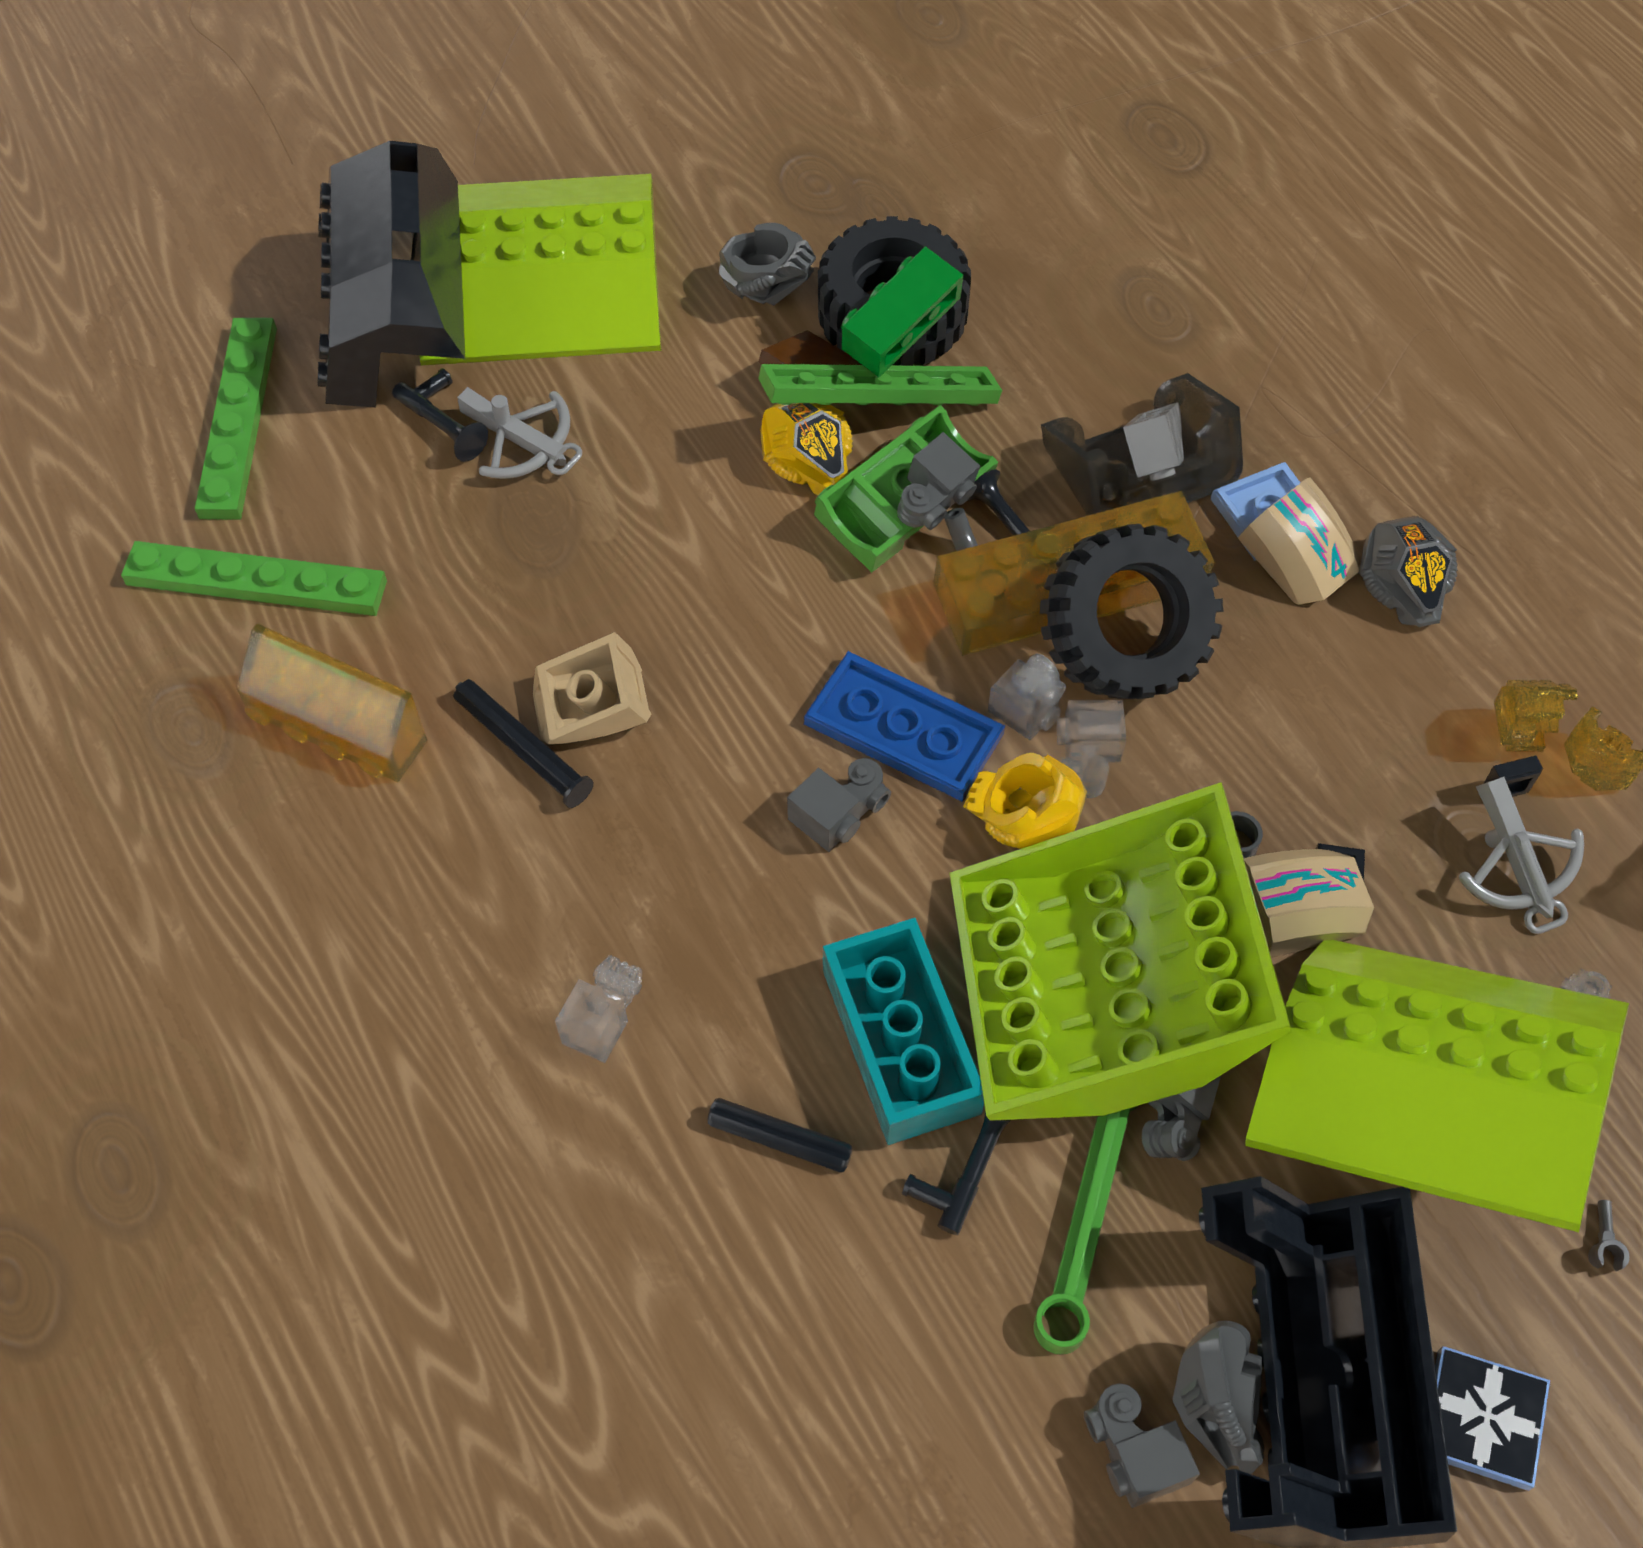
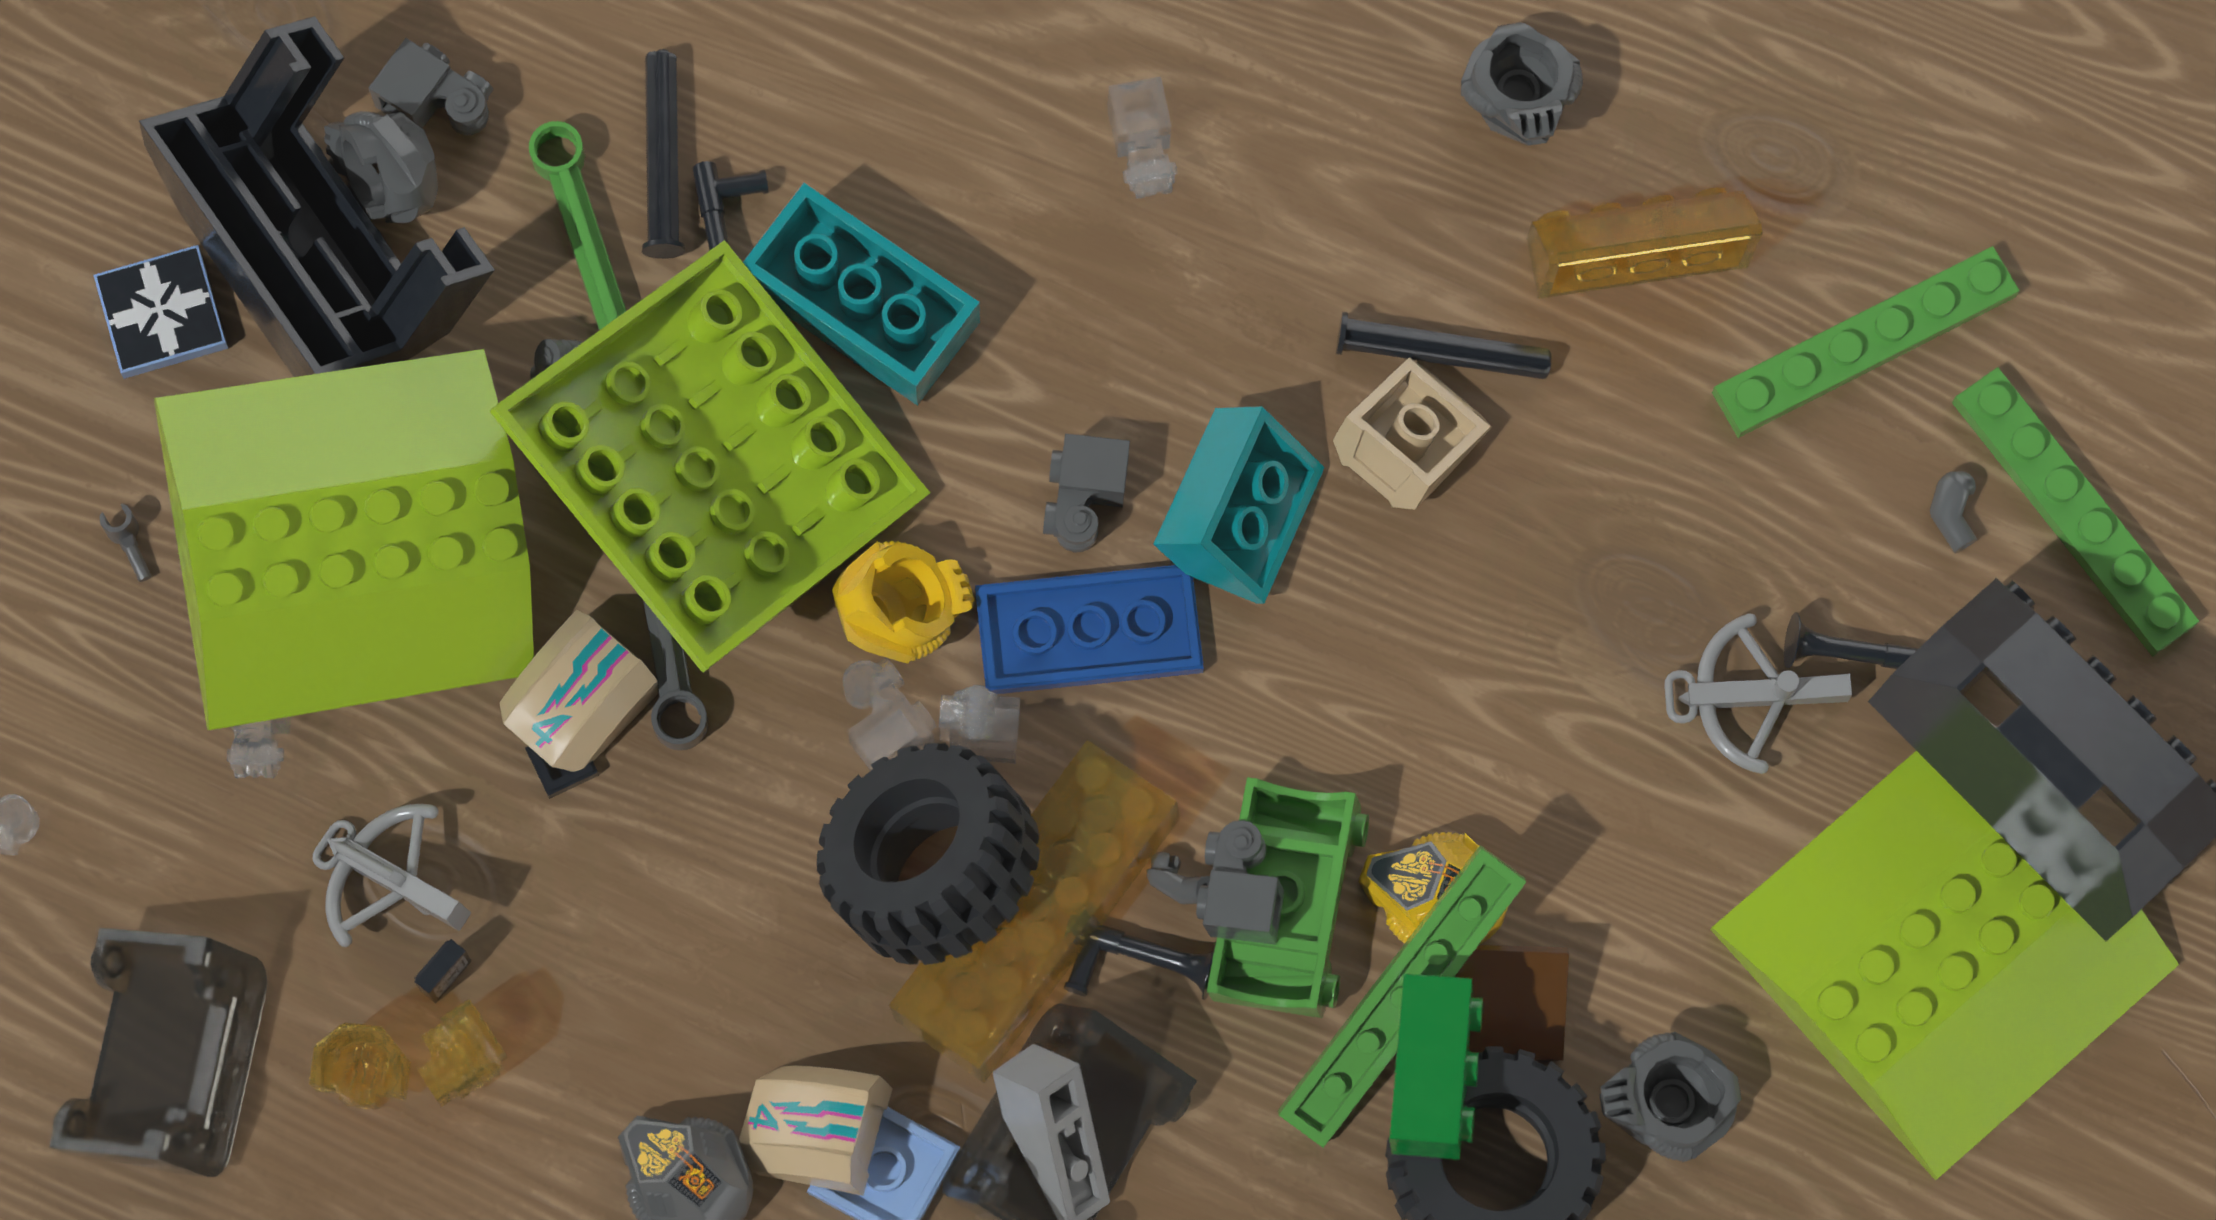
camera: 140 degrees right, 15 degrees up
(304, 458) = (1948, 507): none -> dark grey arm
(305, 855) = (1521, 82): none -> dark grey helmet
(746, 723) = (1240, 503): none -> teal slope
(780, 1135) = (906, 148): black axle -> none
(975, 1261) = (662, 156): none -> black axle

